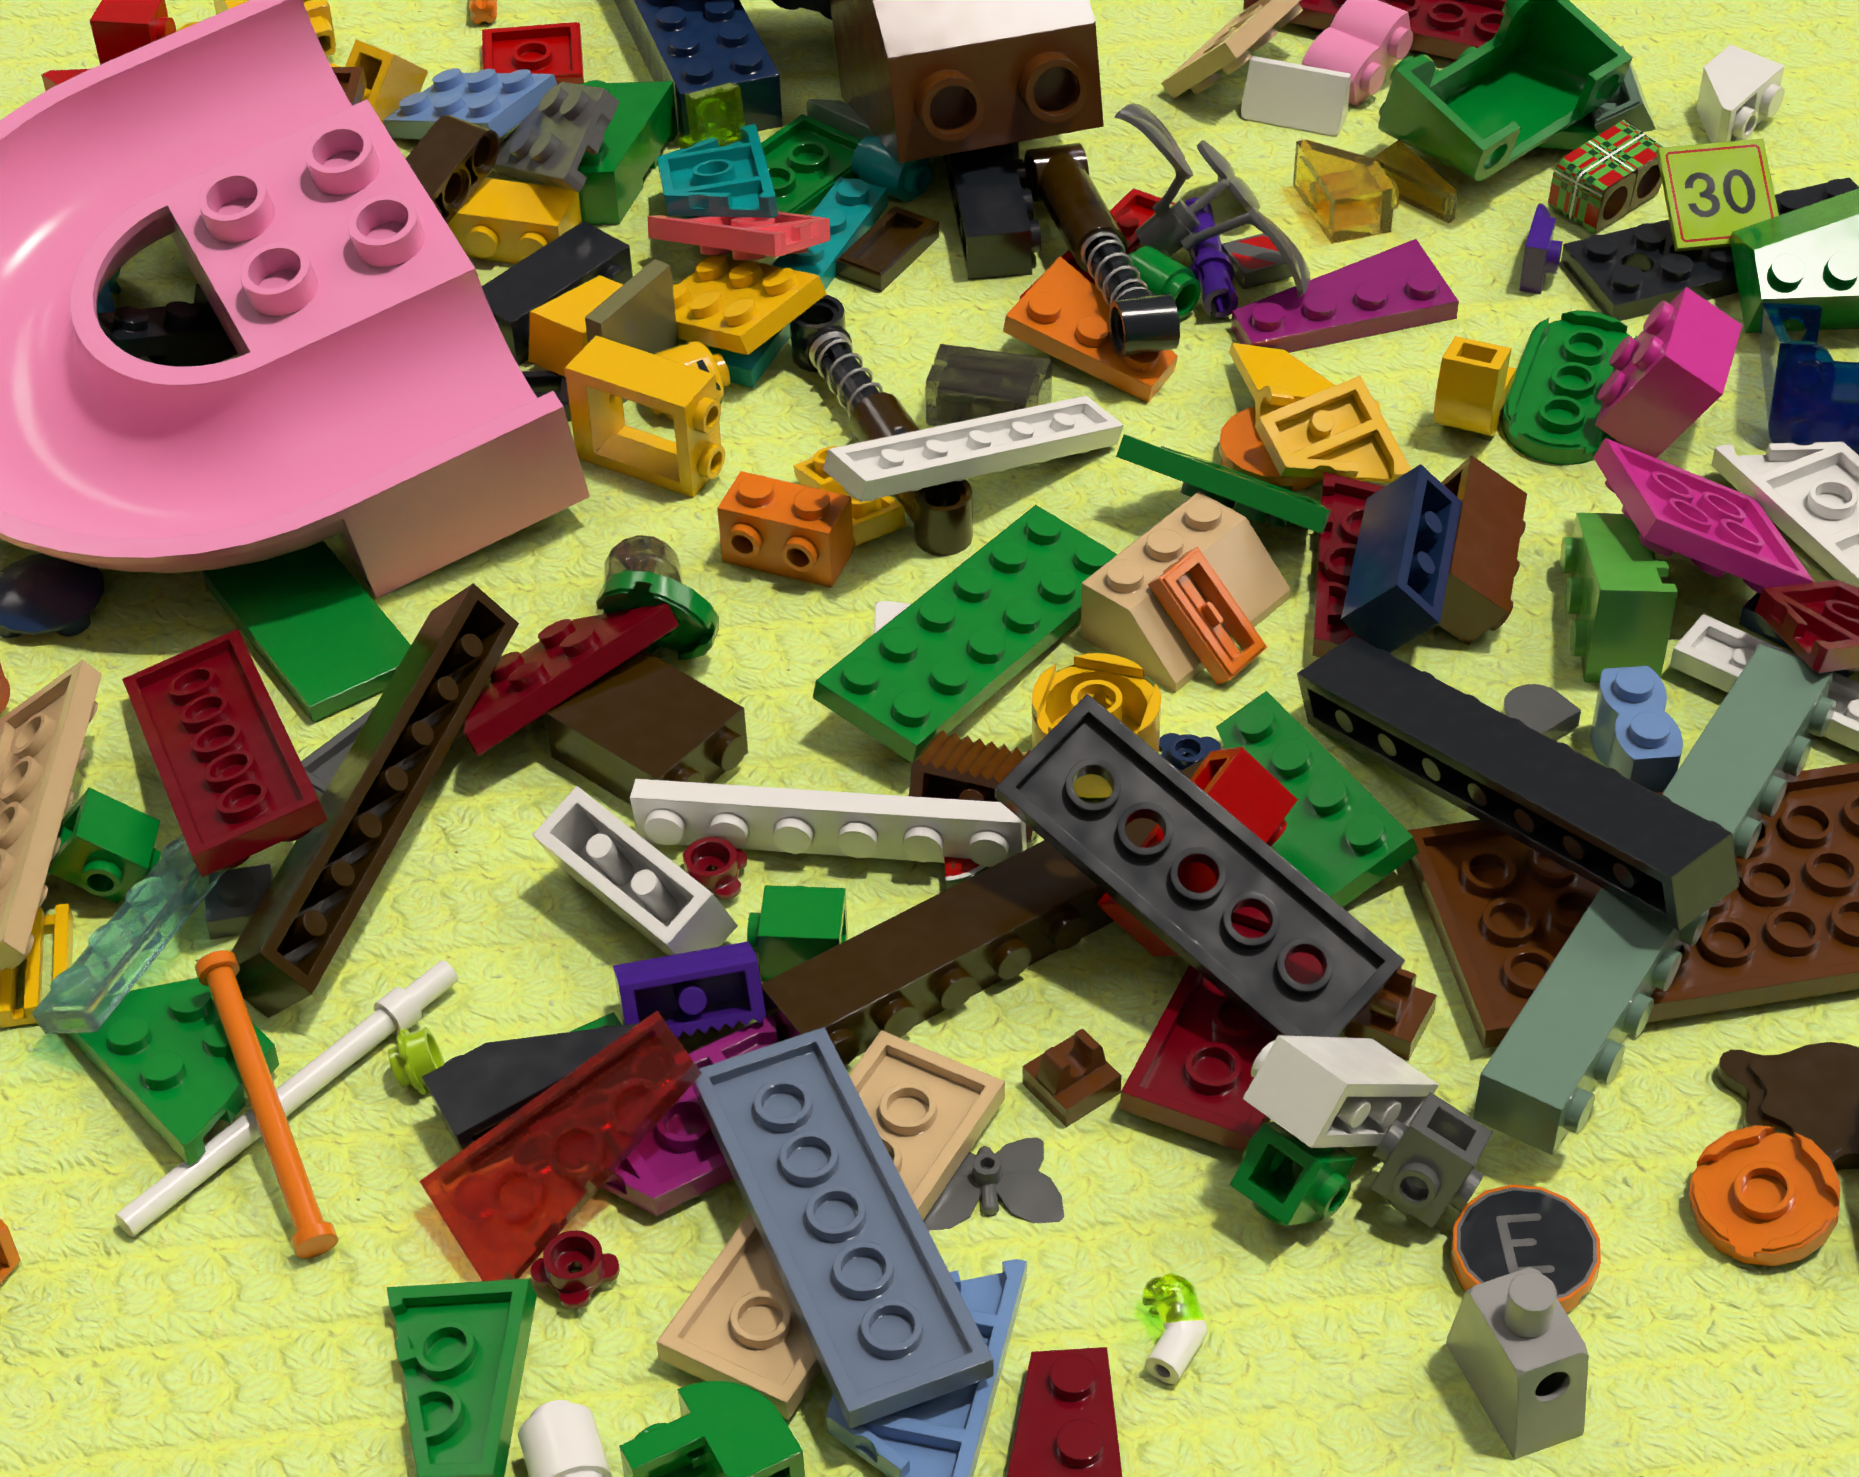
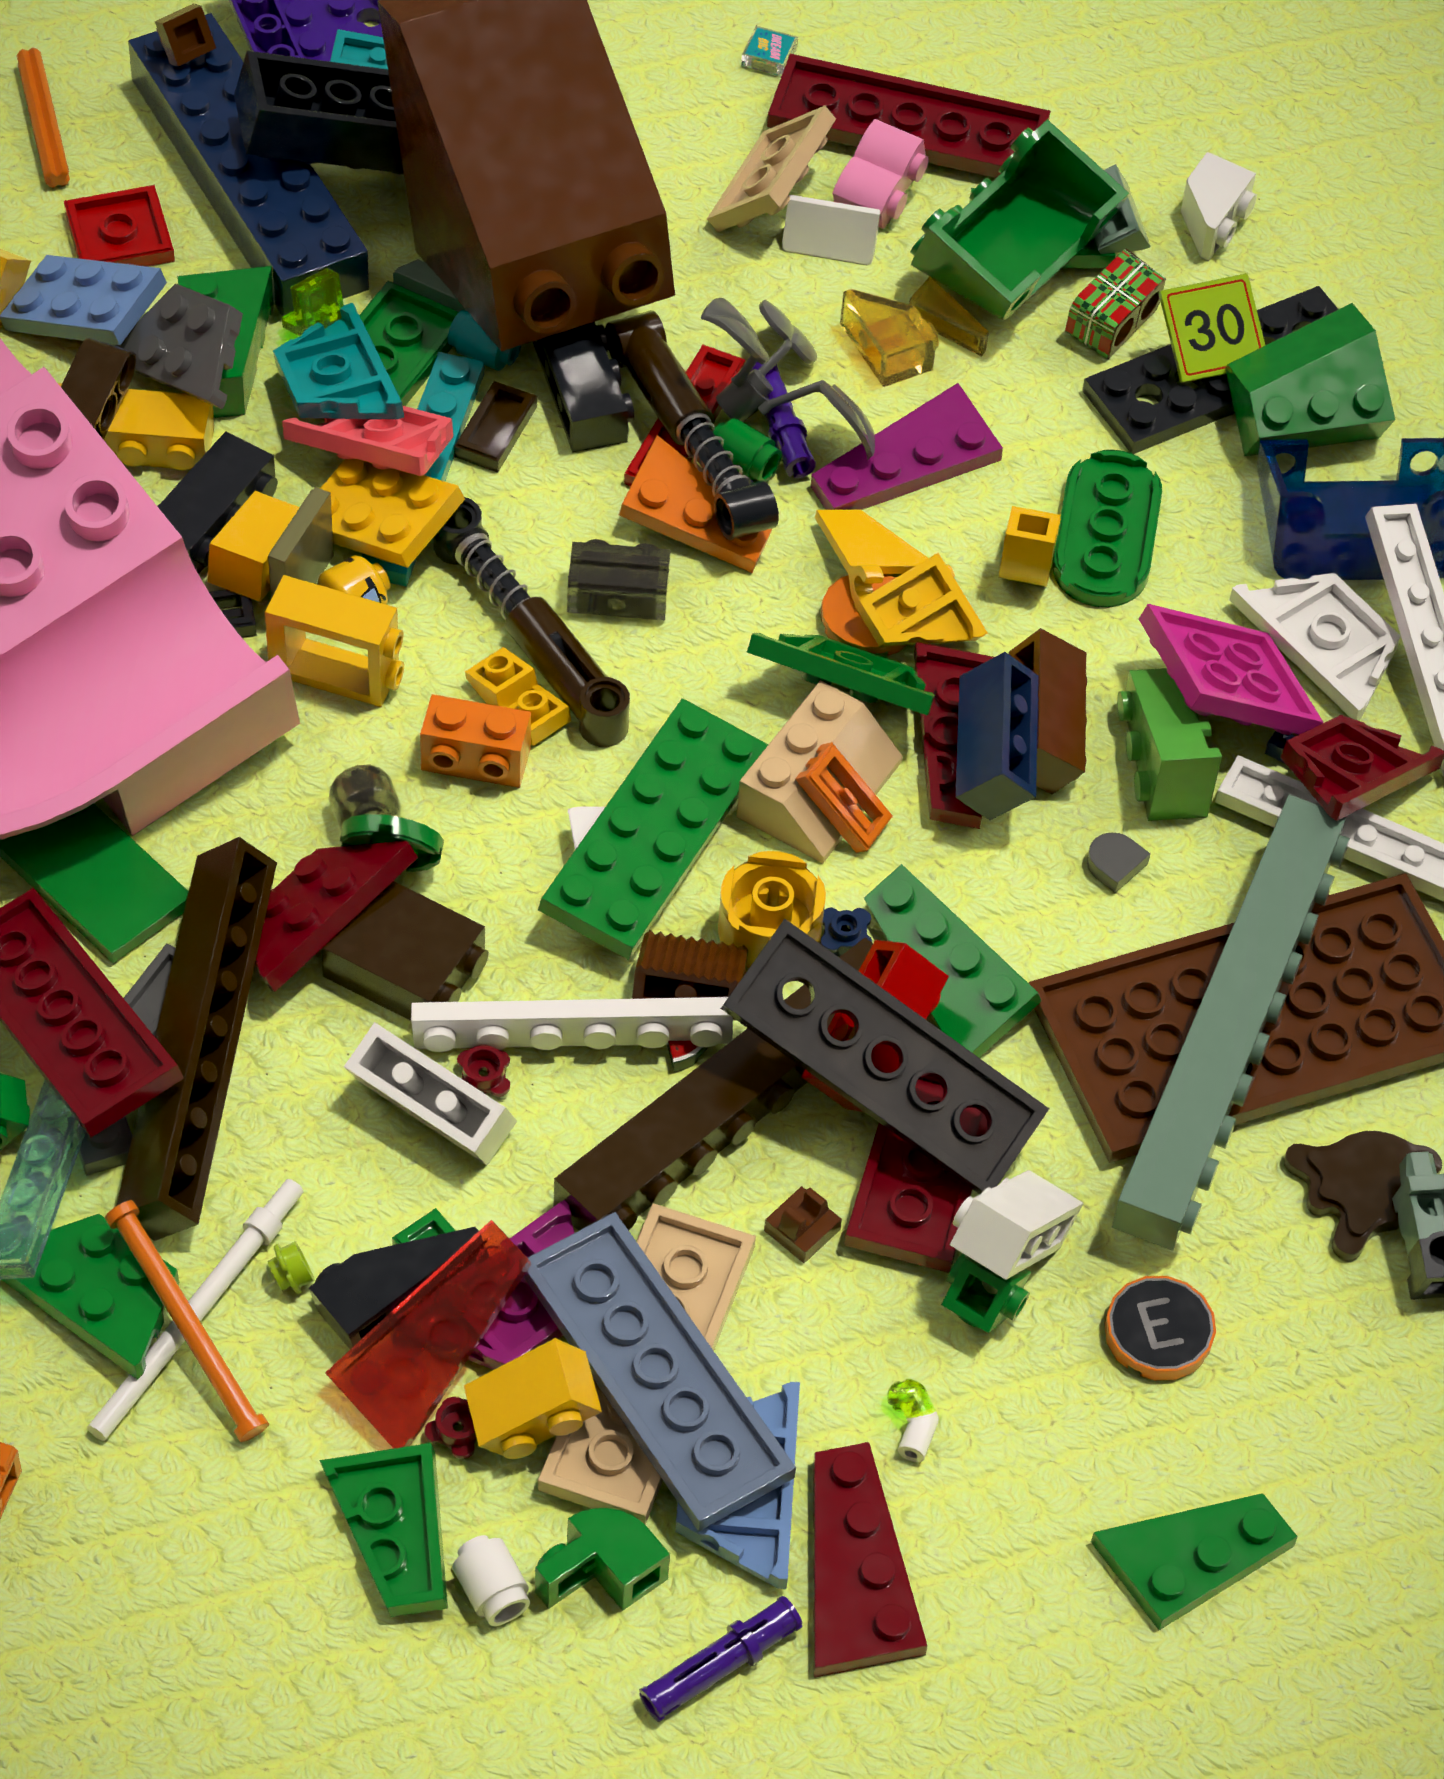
camera: 15 degrees left, 10 degrees up
(667, 1236) = (532, 1399): none -> yellow brick
(693, 989) = (498, 1187): dark purple brick -> none
(796, 926) = (568, 1122): green brick -> none
(971, 448) = (625, 653): white plate -> none
(1009, 1175) = (768, 1310): dark grey piece -> none
(1256, 261) = (819, 417): dark grey tile -> none
(1396, 1015) = (1044, 1146): reddish brown tile -> none
(1430, 1161) = (1086, 1267): dark grey brick -> none
(1522, 782) = (1111, 937): black brick -> none
(1522, 1360) = (1163, 1410): light grey torso -> none
(1541, 252) = (1067, 391): plate -> none
(1633, 729) = (1196, 877): medium blue brick -> none
(1668, 373) = (1189, 525): dark pink piece -> none
(1765, 1196) = (1328, 1263): orange tile -> none

